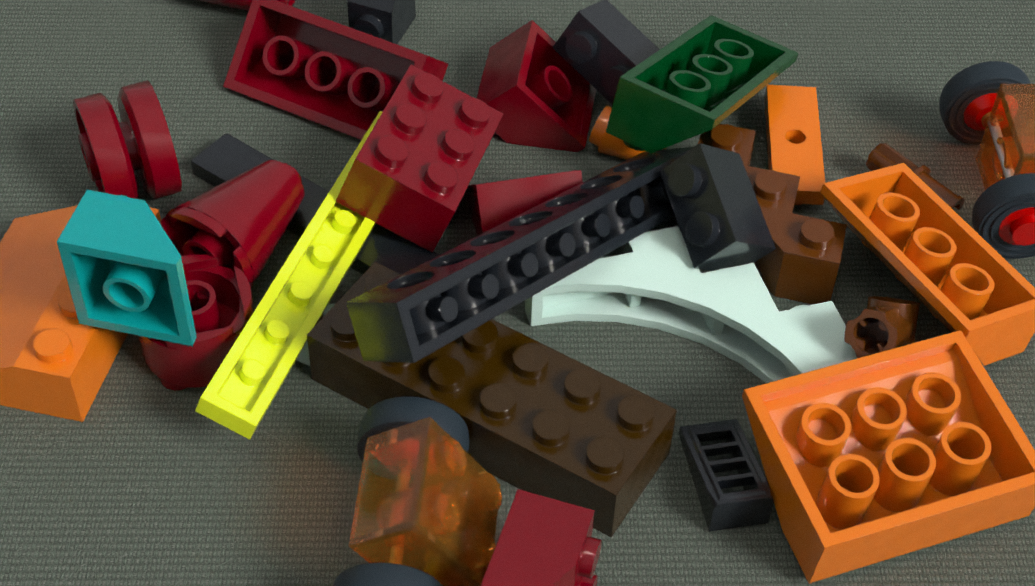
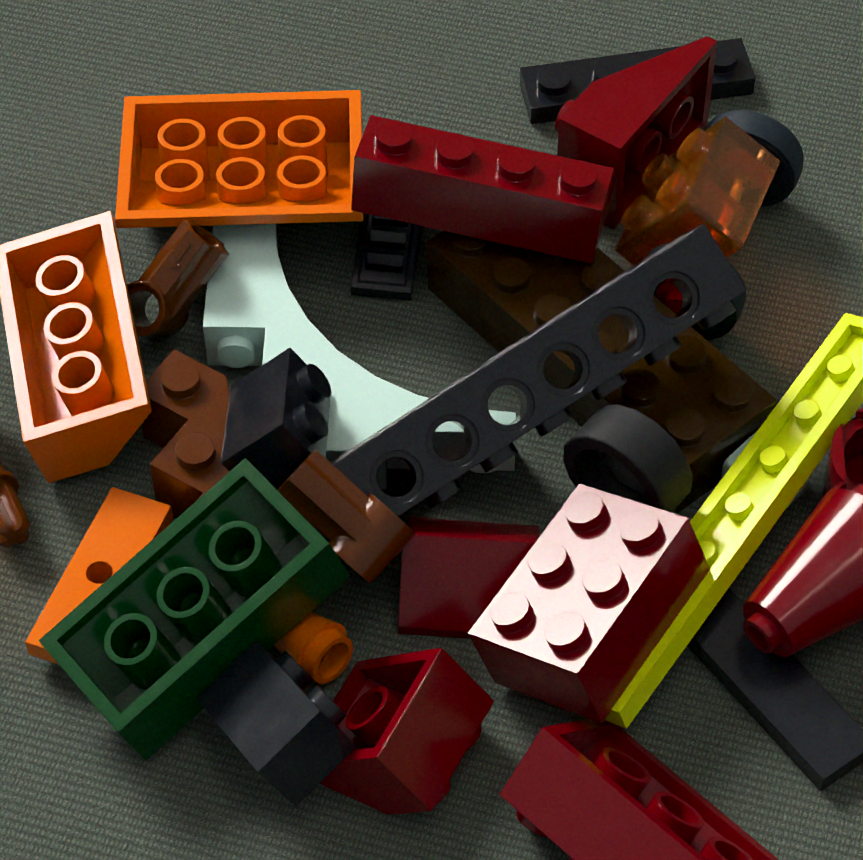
camera: 160 degrees left, 5 degrees up
(417, 214) = (629, 458): none -> black tyre
(628, 142) = (356, 524): none -> reddish brown piece
(644, 427) = (481, 188): none -> dark red slope

